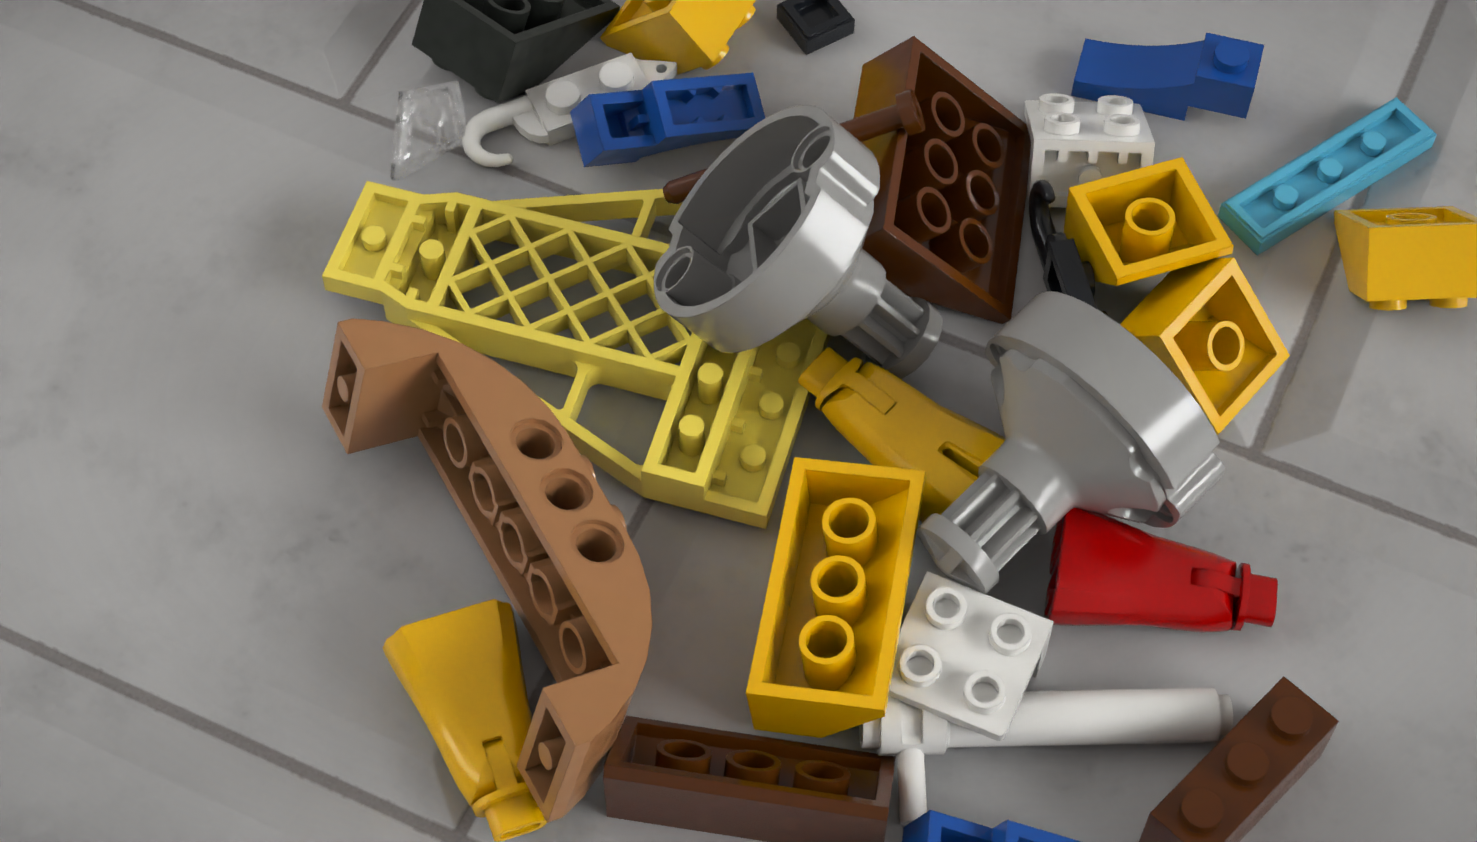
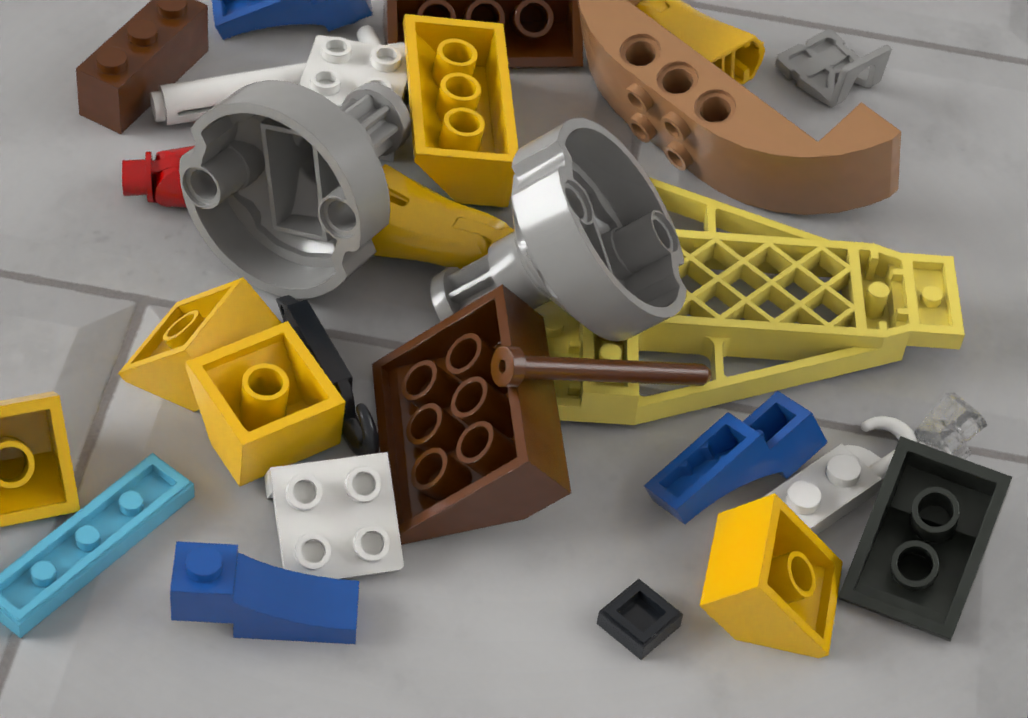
camera: 160 degrees right, 10 degrees down
(291, 661) = (827, 59): none -> light grey piece

